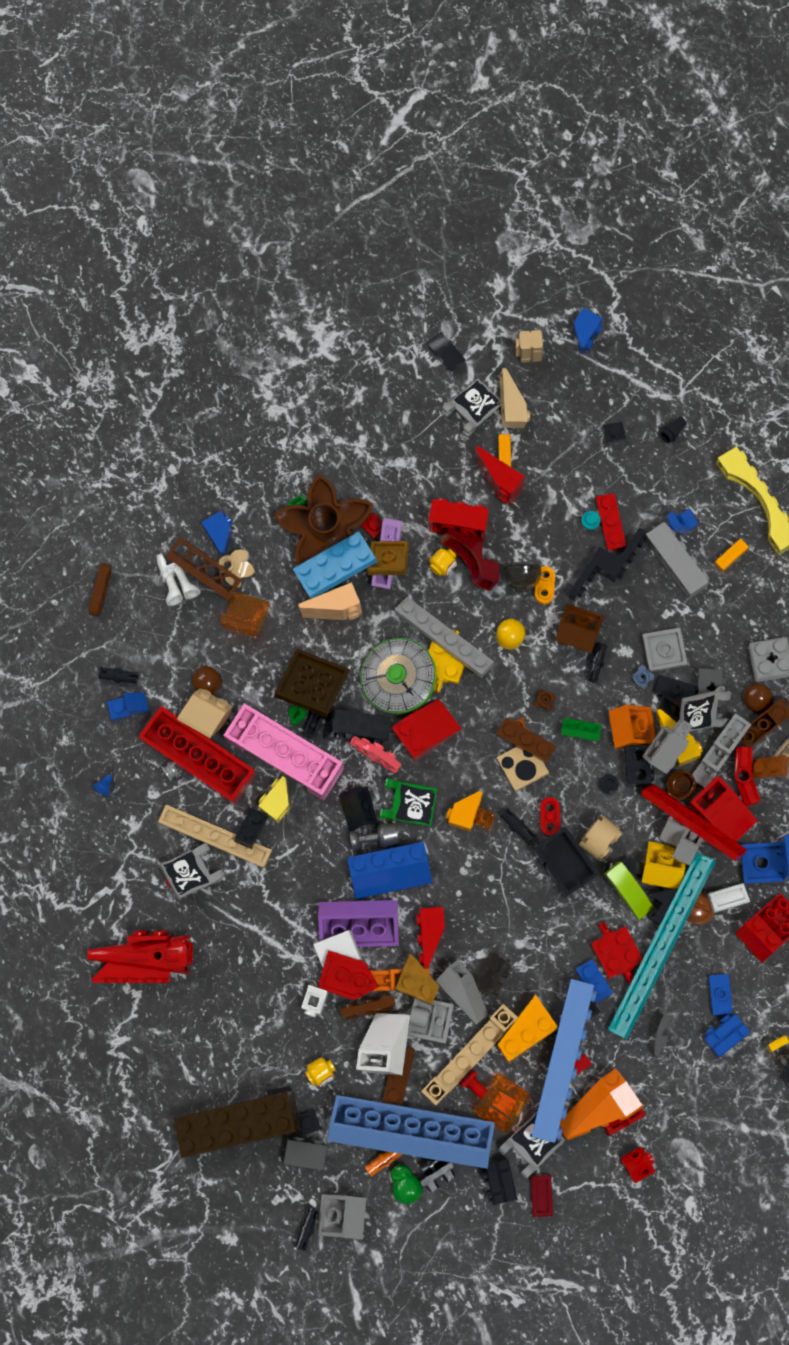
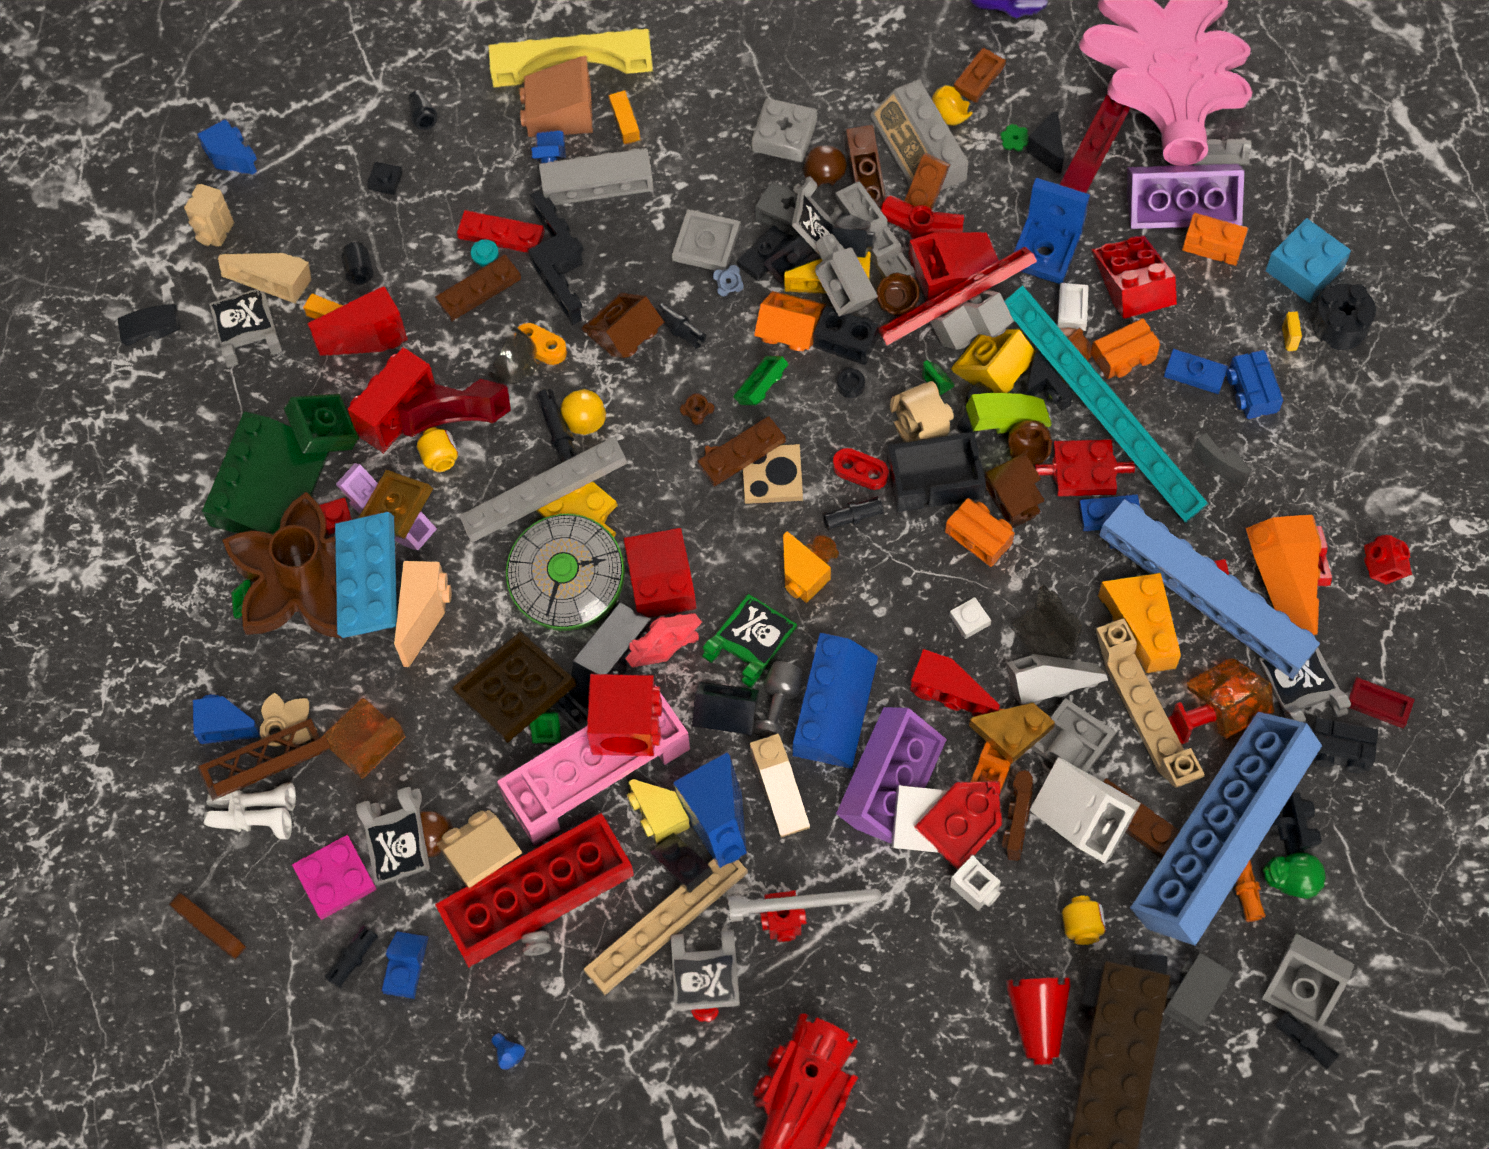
camera: 70 degrees left, 10 degrees down
(159, 642) = (334, 877): none -> dark pink plate
(194, 663) = (396, 838): none -> flag
(232, 873) = (741, 907): none -> light grey piece
(244, 893) = (783, 924): none -> red brick
(252, 1069) = (1040, 1015): none -> red cone
(286, 833) = (715, 808): none -> blue slope
(308, 754) = (624, 715): none -> red brick
(323, 862) = (779, 785): none -> slope
(378, 473) = (260, 477): none -> dark green slope
(435, 486) = (321, 423): none -> dark green brick
(482, 926) = (970, 618): none -> white plate
(485, 629) = (560, 436): none -> black pin
(540, 907) = (980, 531): none -> orange brick
(544, 449) = (357, 263): none -> black brick
(565, 529) = (478, 287): none -> reddish brown plate
(579, 917) = (1015, 490): none -> reddish brown piece
(615, 911) = (1032, 439): none -> reddish brown hair
(637, 836) = (935, 373): none -> green slope
(704, 737) = (854, 233): none -> black slope
(712, 943) = (1125, 349): none -> orange brick
(719, 509) = (558, 99): none -> nougat slope

